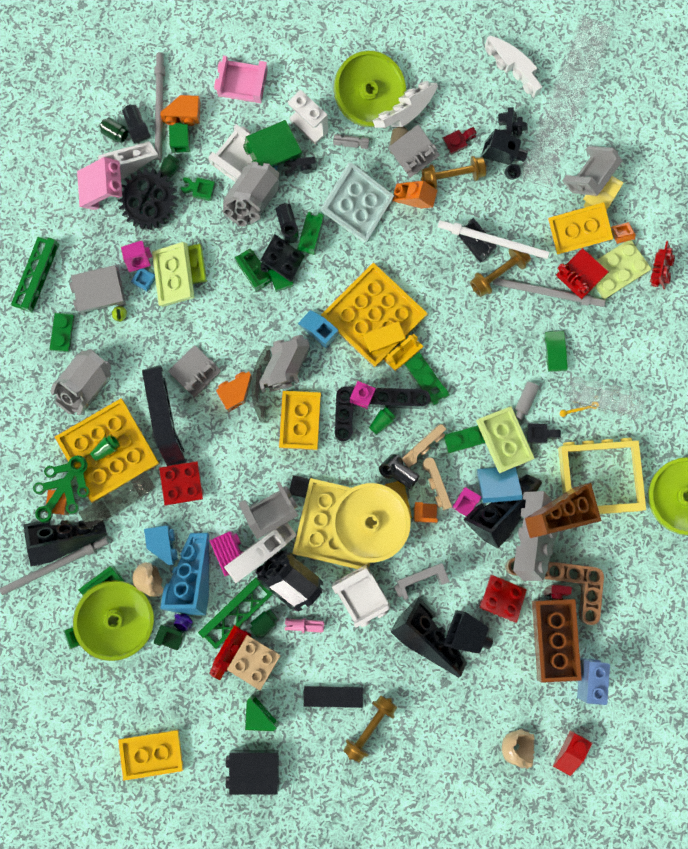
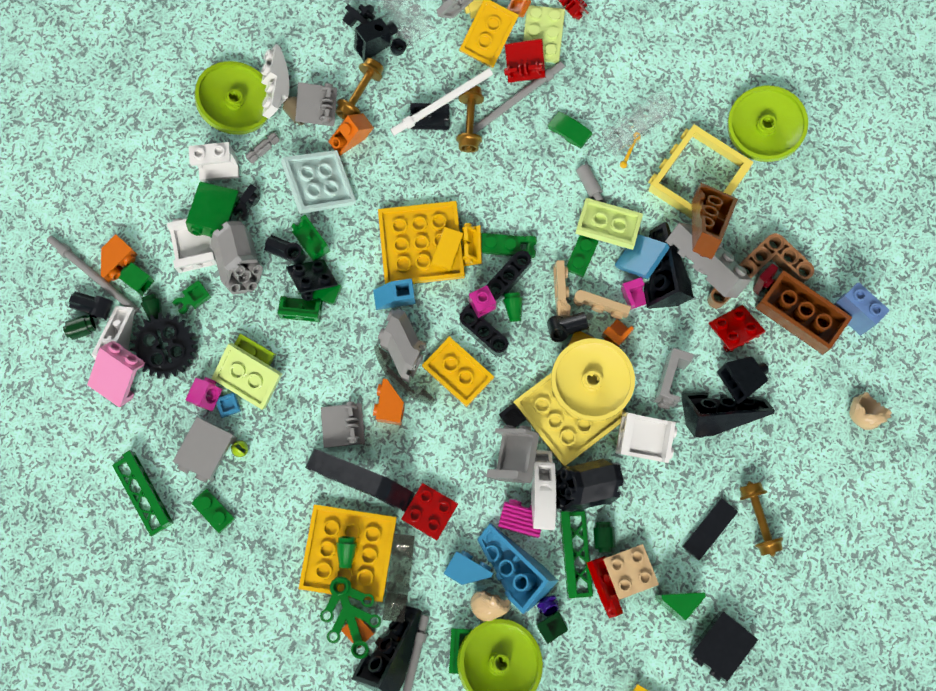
camera: 50 degrees left, 5 degrees down
(81, 382) = (272, 526): light grey brick -> none
(241, 80) = (133, 191): bright pink panel -> none
(304, 625) = (632, 505): bright pink axle -> none
(457, 141) = (335, 68): dark red plate -> none
(539, 433) = (626, 194): black plate -> none
(572, 753) = (903, 373): red slope -> none

